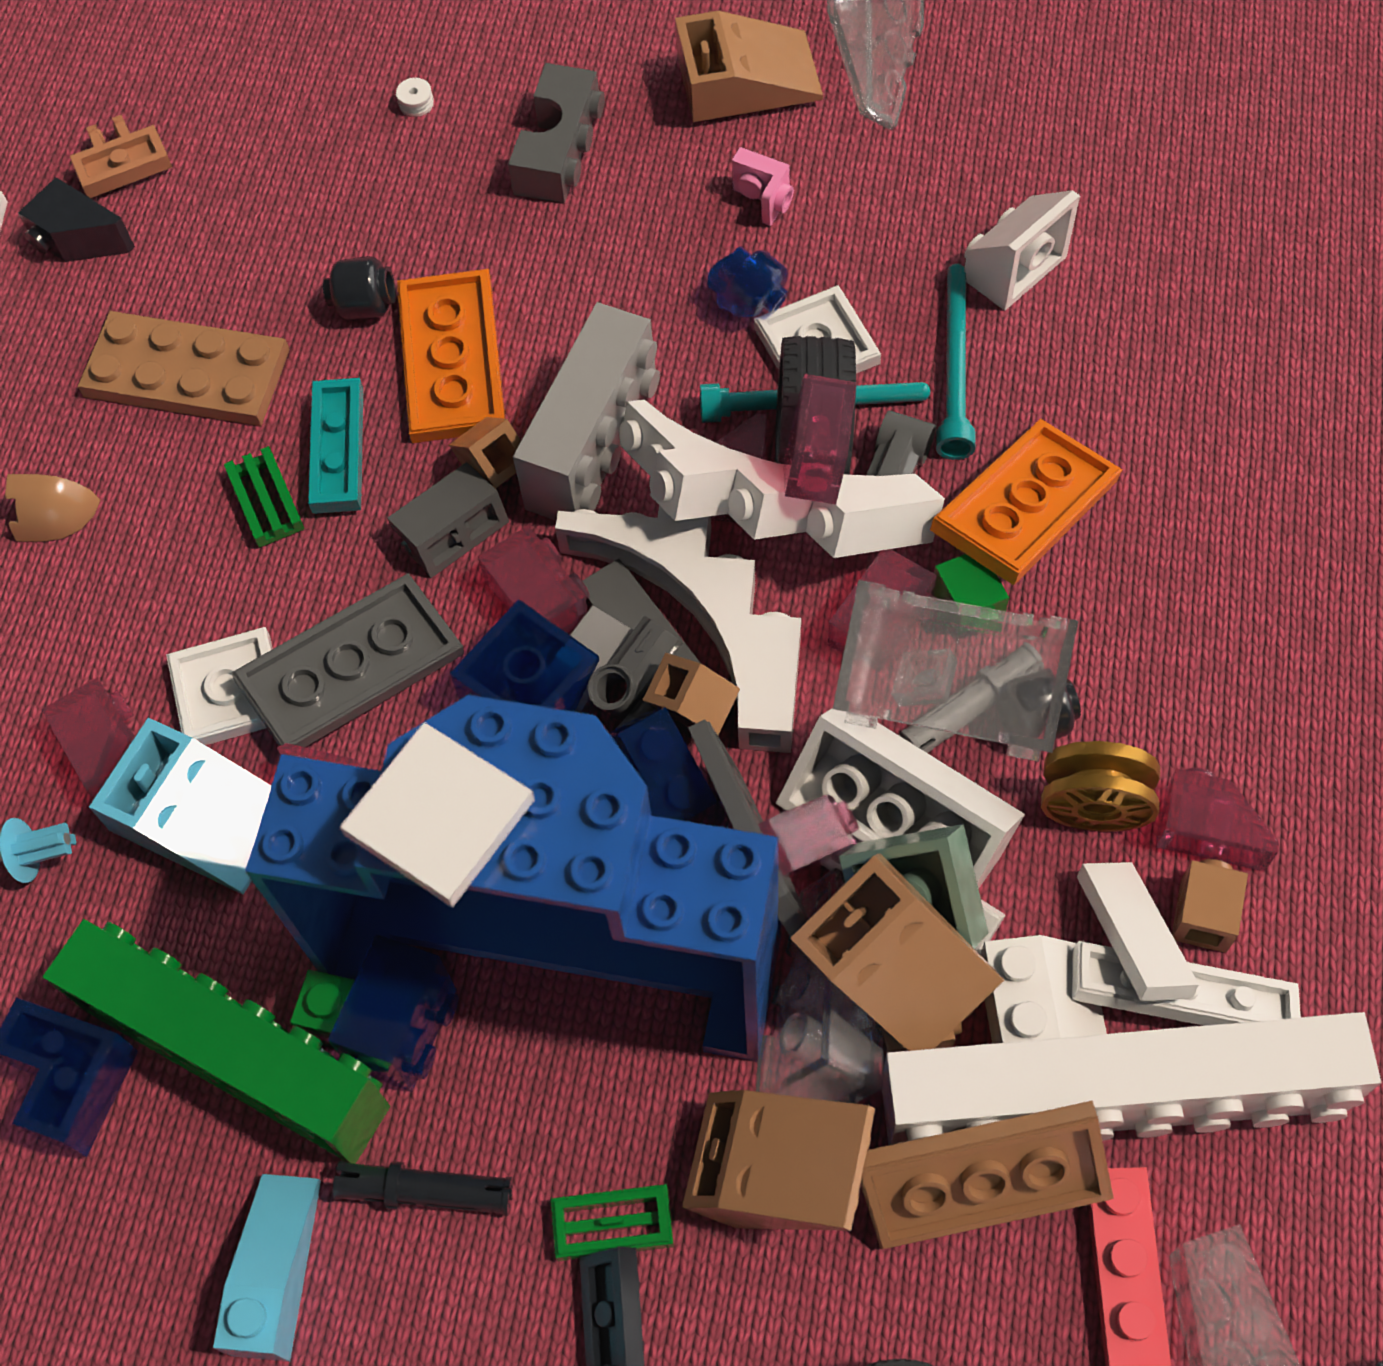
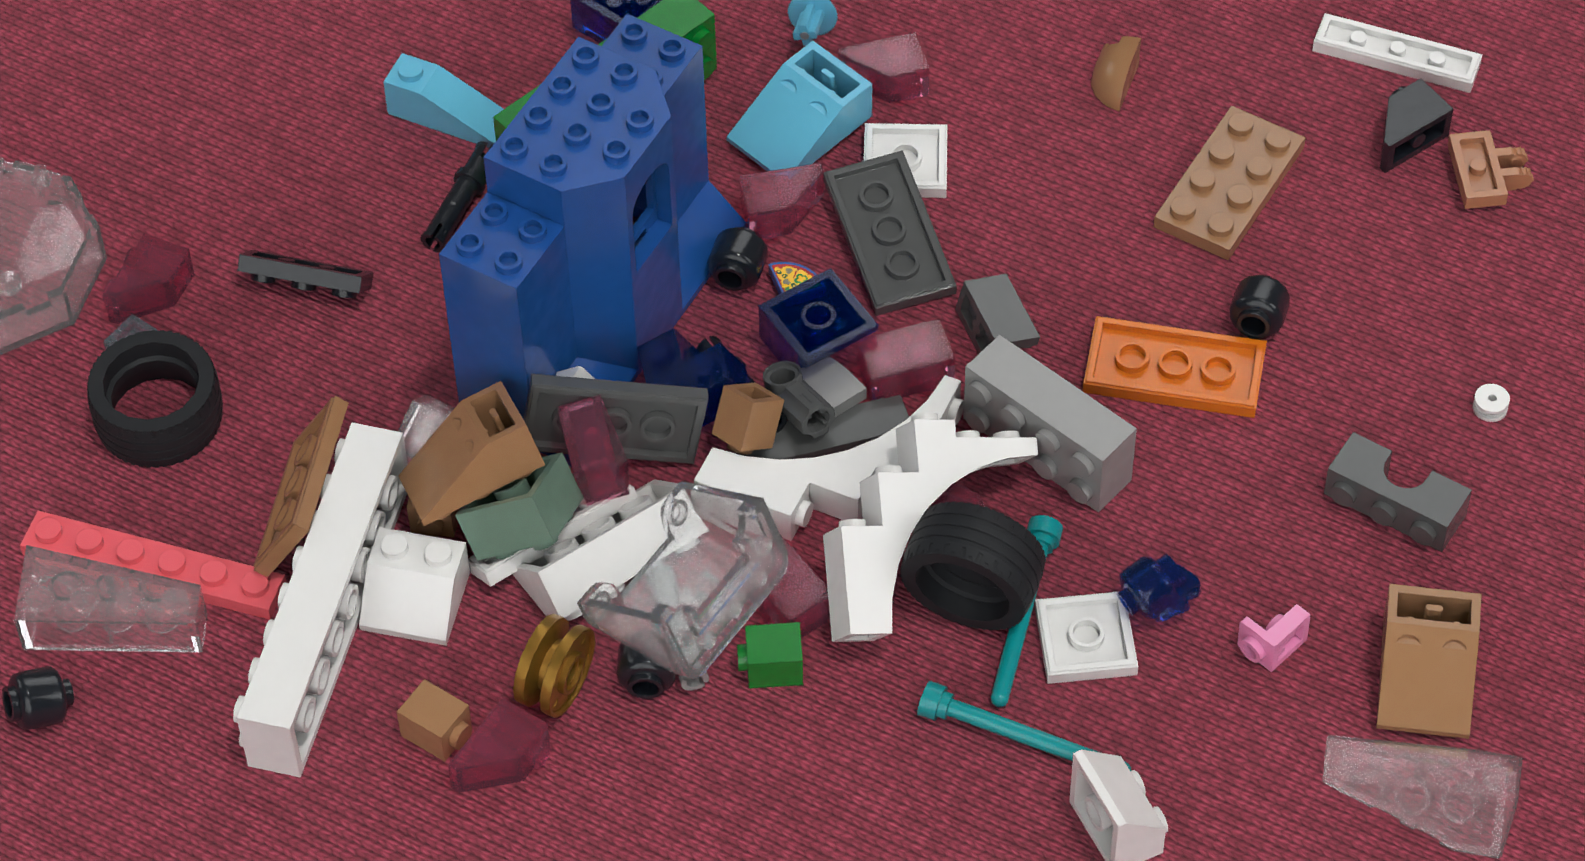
camera: 105 degrees right, 10 degrees down
(251, 467) = (1073, 207): green tile -> none
(336, 446) = (1103, 264): teal plate -> none
(438, 814) = (584, 72): white tile -> none
(489, 449) = (1050, 347): medium nougat brick -> none
(610, 1199) = (381, 323): green tile -> none
(779, 1161) = (370, 367): medium nougat slope -> none
(819, 439) = (902, 513): clear pink slope -> none
(901, 445) = (938, 655): dark grey piece -> none
(1025, 501) = (842, 720): orange tile -> none
(1137, 932) = (433, 651): white tile -> none
(1220, 998) = (376, 677): white tile -> none

